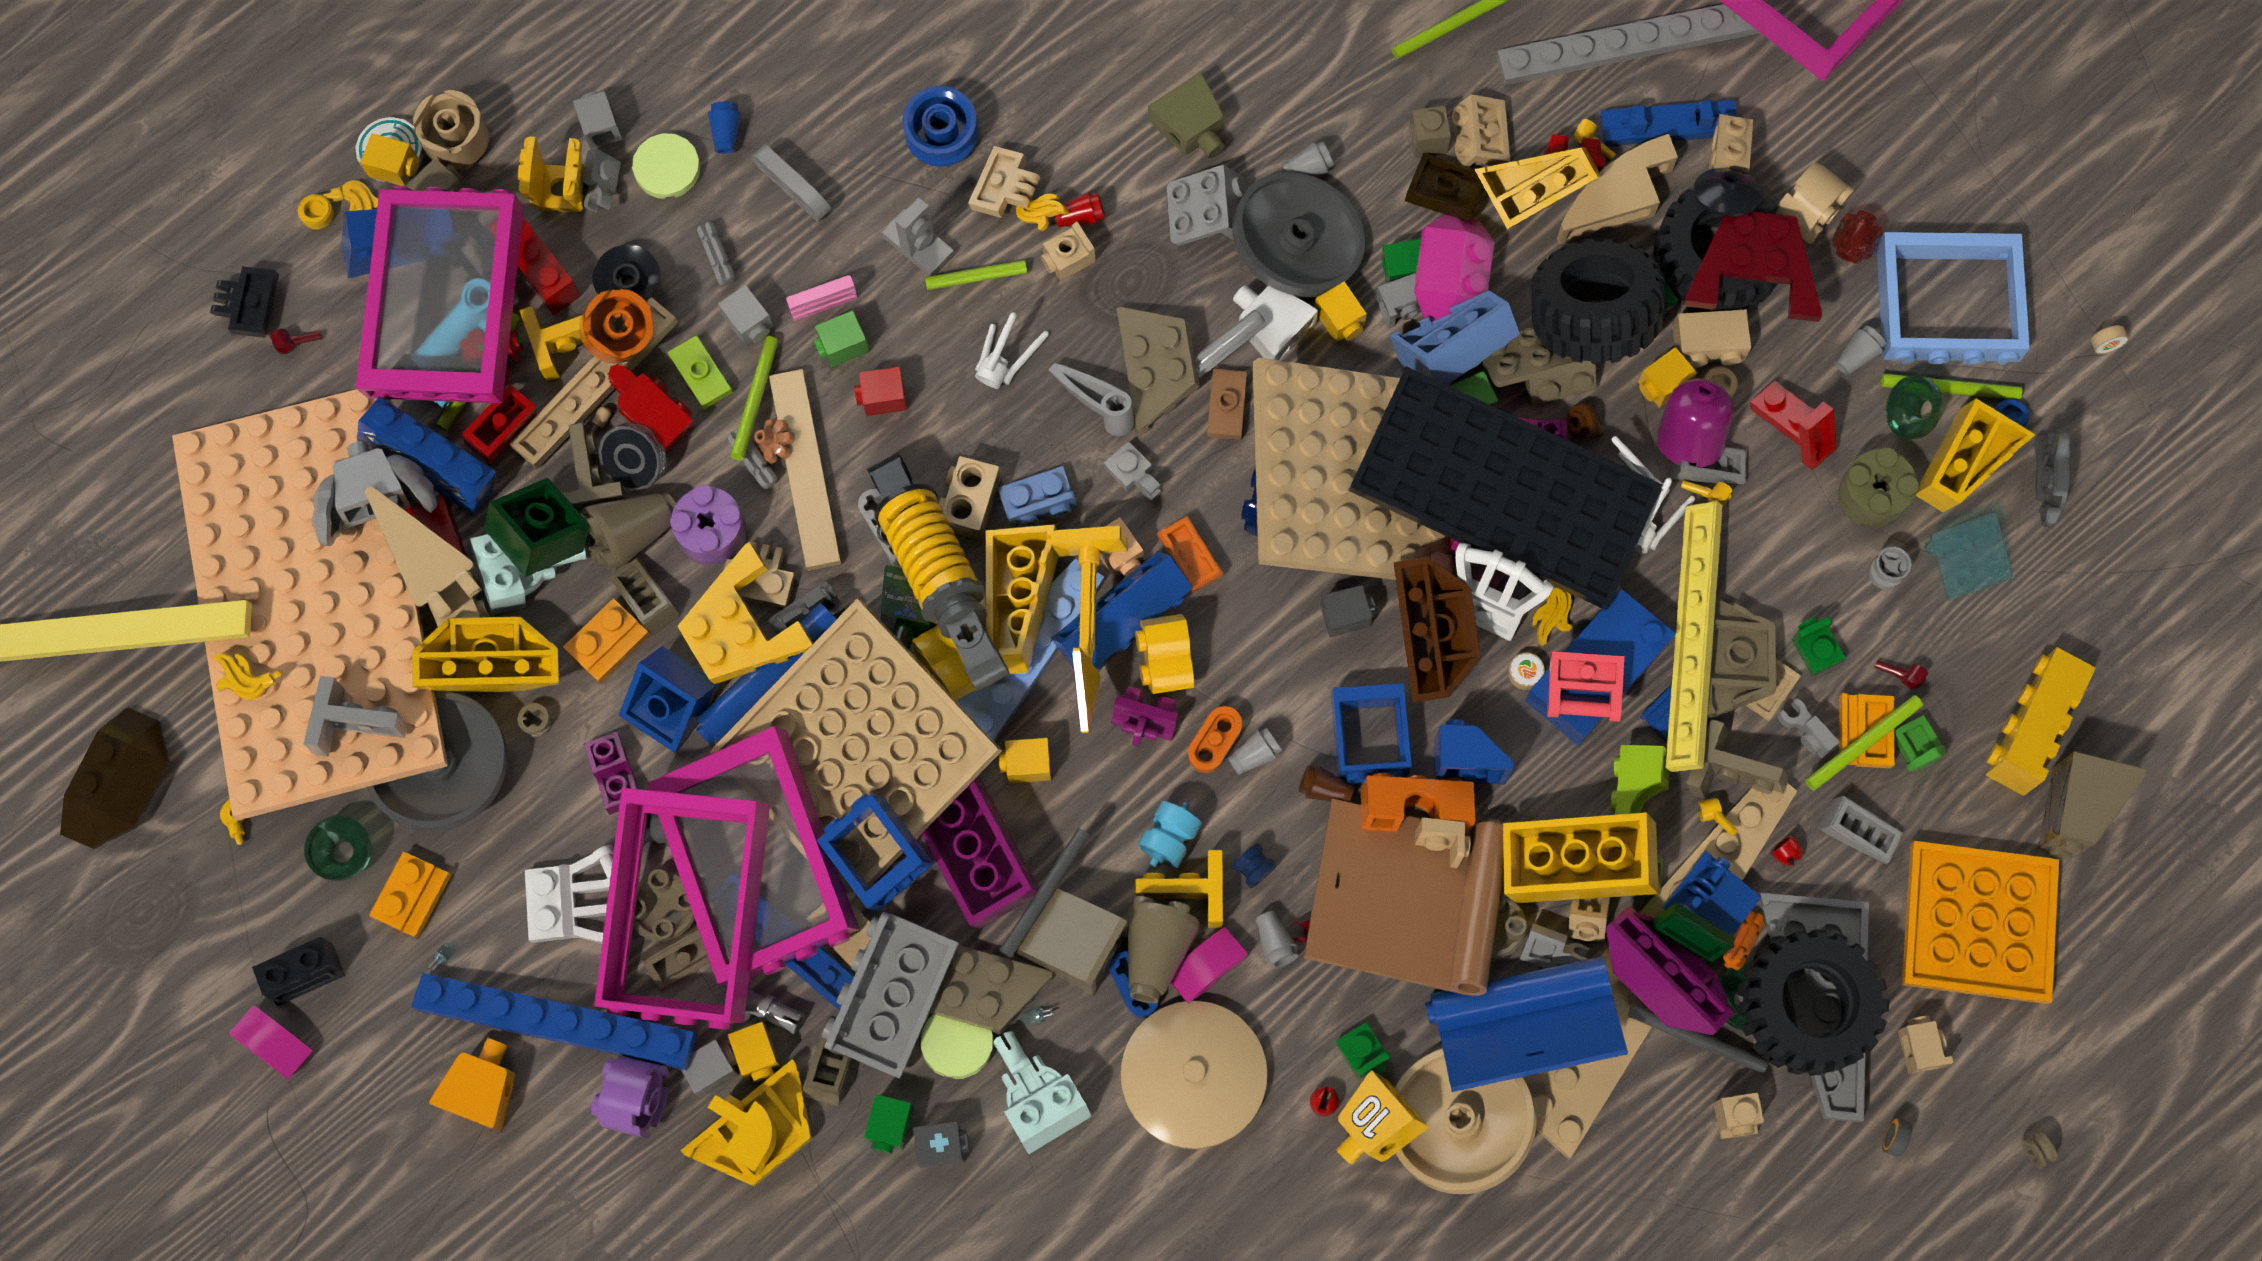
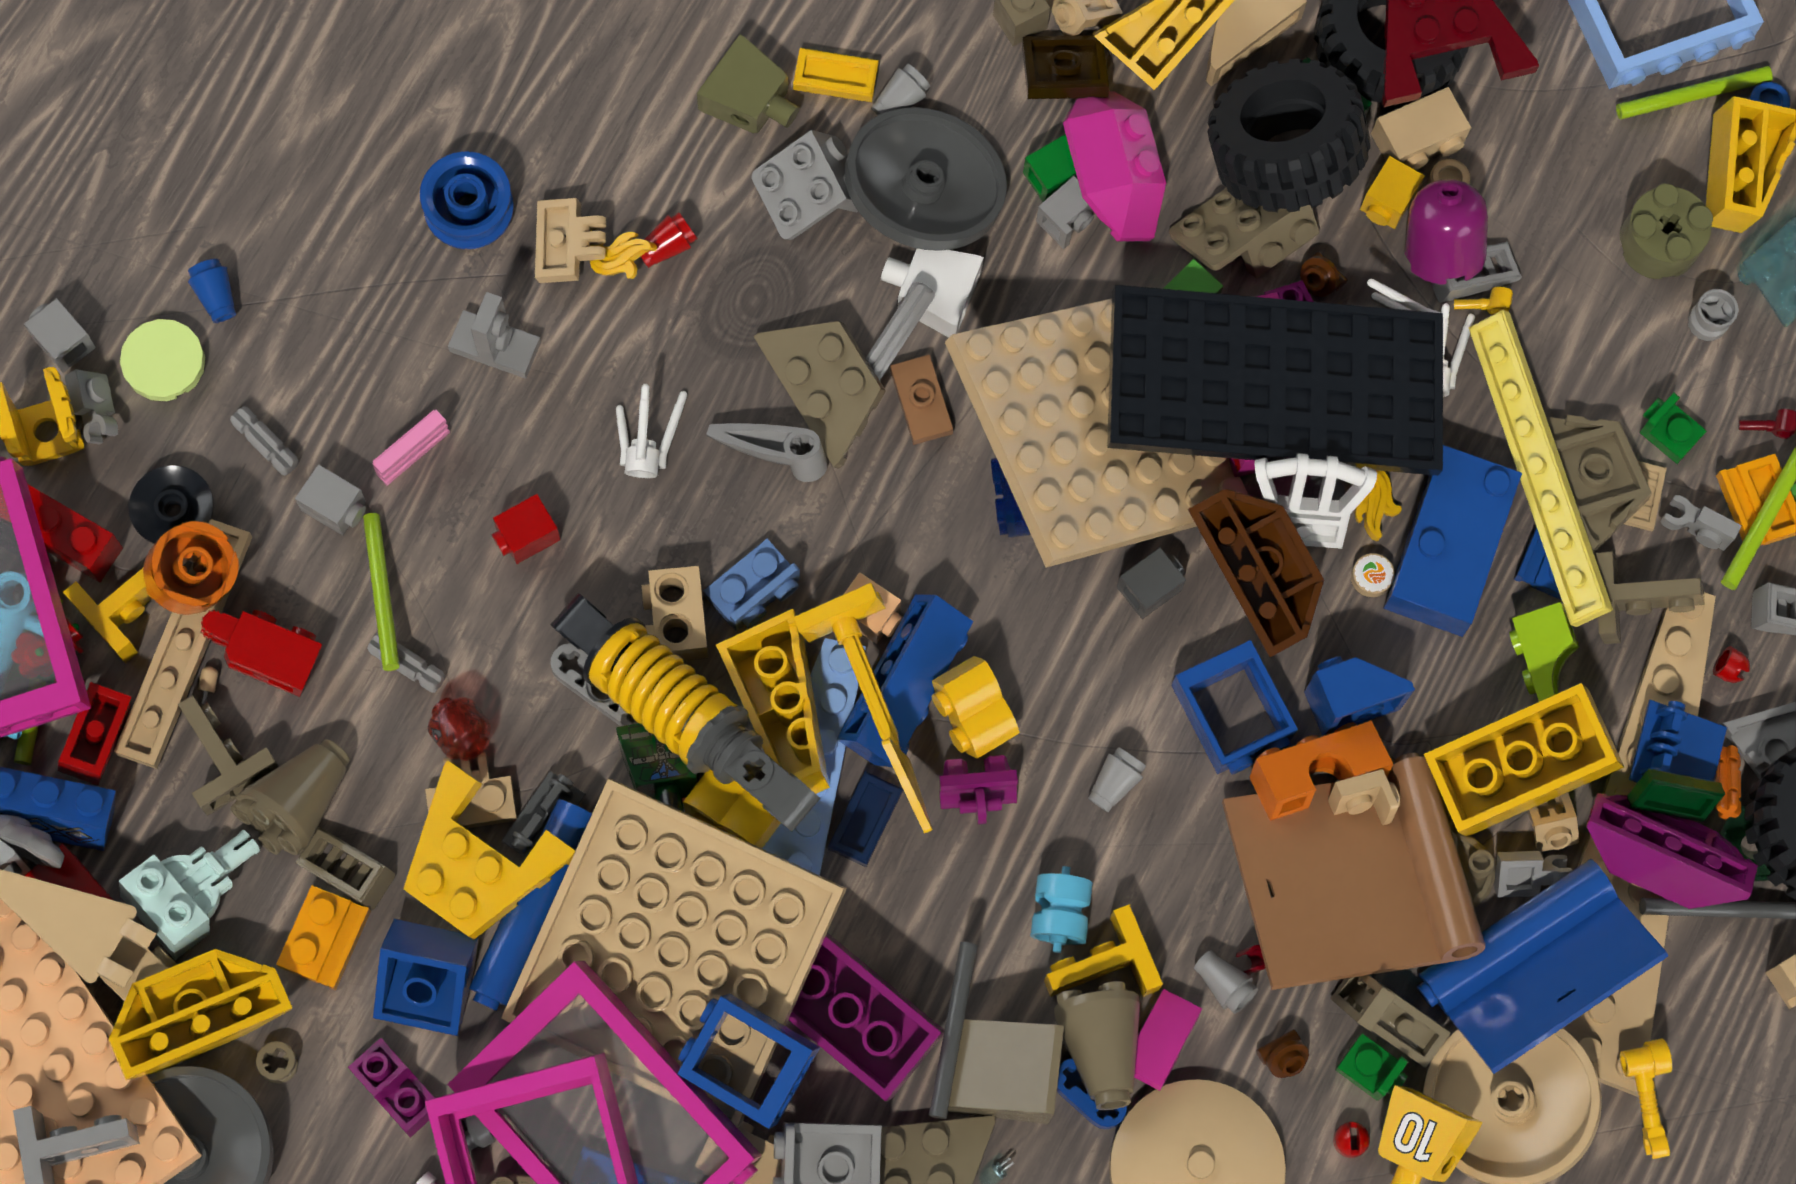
camera: 30 degrees left, 0 degrees up
(536, 527) = (194, 837): dark green brick -> none
(632, 456) = (267, 712): black tile -> none
(700, 372) = (303, 585): lime plate -> none
(704, 507) = (379, 737): medium lavender brick -> none
(769, 522) = (459, 728): none -> clear red head
(773, 440) = (423, 631): nougat plant -> none
(791, 182) = (319, 327): light grey beam -> none
(806, 471) = (472, 652): tan tile -> none
(840, 339) = (453, 487): bright green brick -> none
(976, 275) = (576, 356): lime bar -> none
(1026, 760) = (868, 888): yellow brick -> none
(1048, 708) = (865, 819): none -> dark blue tile
(1067, 264) = (674, 307): tan brick -> none
(1132, 469) = (844, 512): light grey plate -> none
(1190, 553) = (943, 576): orange plate -> none
(1213, 740) = (1066, 784): orange plate -> none
(1254, 865) = (1168, 907): dark blue wheel -> none
(1265, 131) = (835, 75): none -> yellow tile
(1298, 1015) = (1284, 1055): none -> reddish brown plate
(1323, 785) = (1206, 787): reddish brown cone -> none
(1341, 313) = (1007, 250): yellow brick -> none
(1393, 1019) = (1391, 1017): none -> dark tan bracket
(1458, 340) = (1152, 235): medium blue wedge -> none
(1580, 1134) = (1645, 1064): none -> yellow brick
(1588, 674) = (1449, 554): coral plate -> none
(1712, 810) = (1635, 652): yellow hand -> none
(1805, 426) = (1552, 190): red bracket -> none
(1861, 349) = (1584, 86): light grey cone -> none
(1905, 406) = (1655, 134): clear green piece -> none

